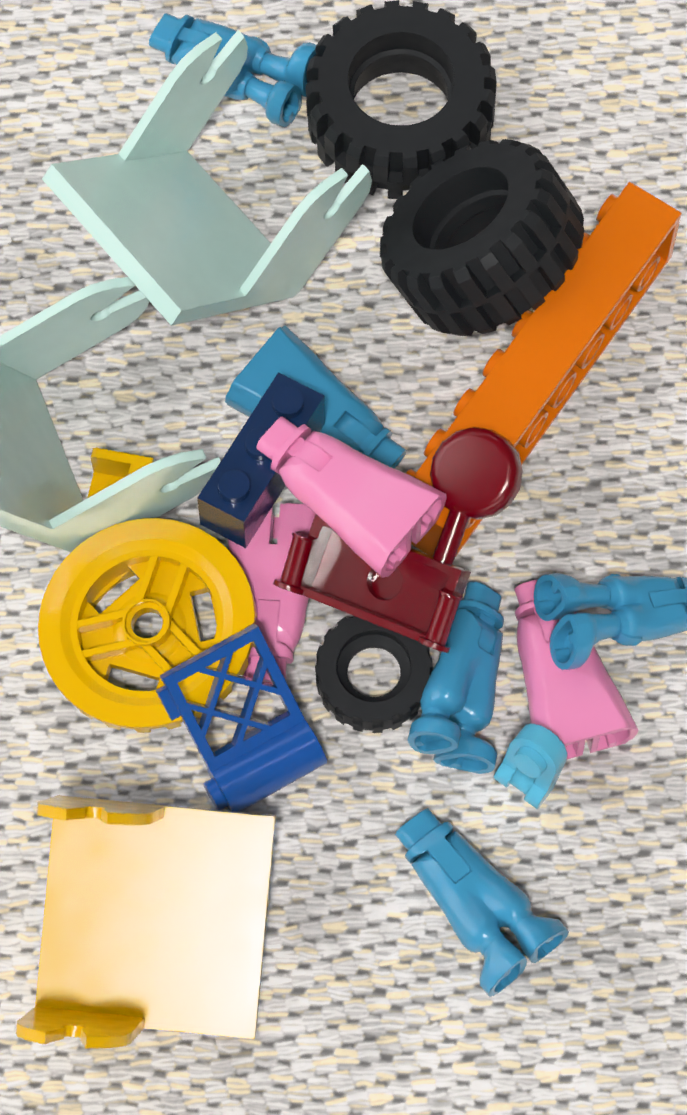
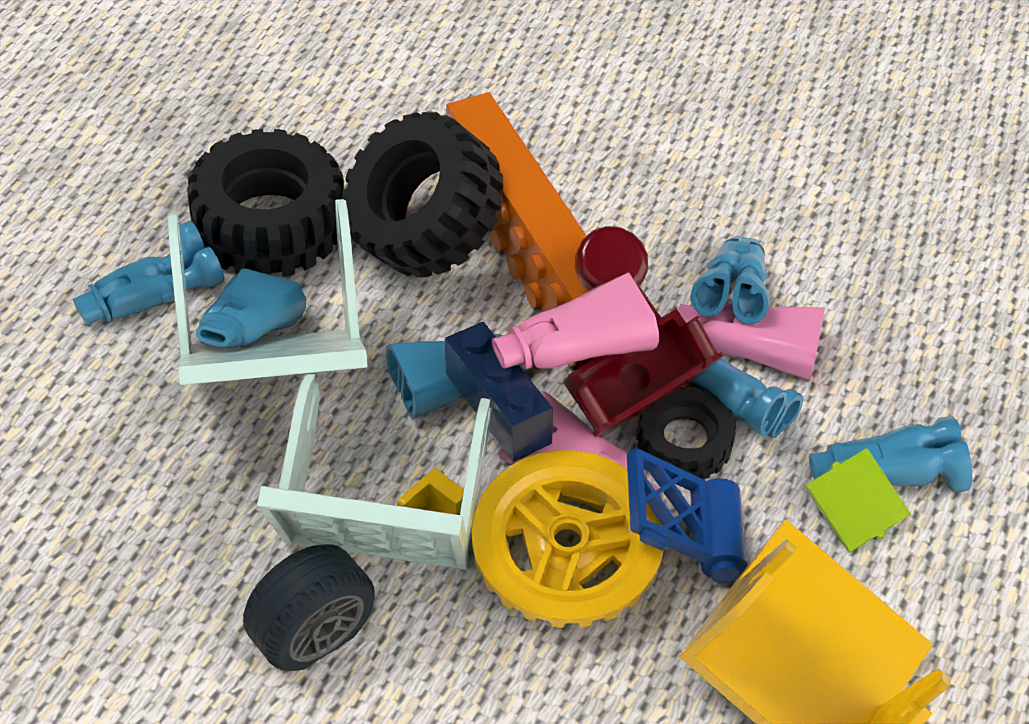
camera: 65 degrees left, 20 degrees down
(236, 174) = (250, 308): none -> dark azure piece
(389, 884) = (857, 500): none -> lime piece
(533, 763) = (817, 361): medium azure plate -> none

